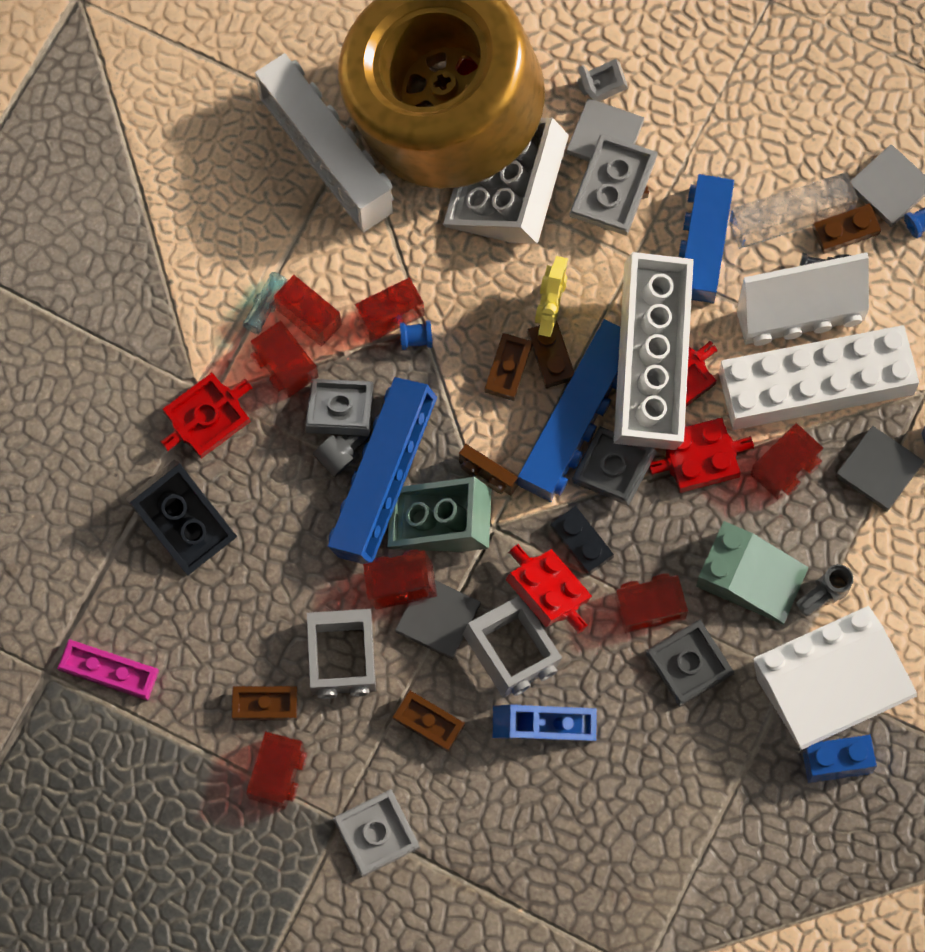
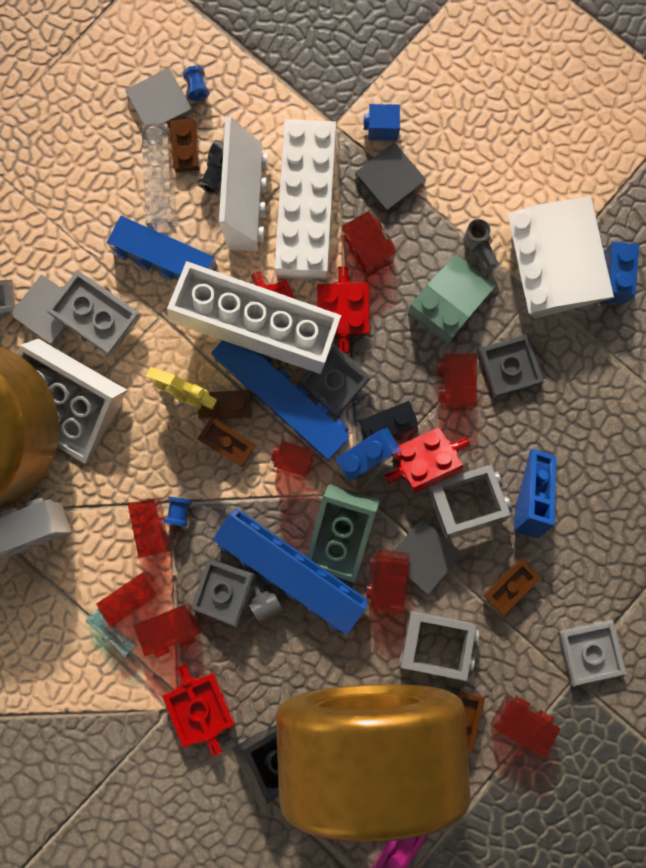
camera: 75 degrees left, 10 degrees up
(212, 580) = (373, 761): none -> pearl gold wheel
(476, 464) = (321, 476): reddish brown plate -> none
(506, 438) = (292, 460): none -> clear red brick
(535, 519) = (368, 454): none -> blue brick

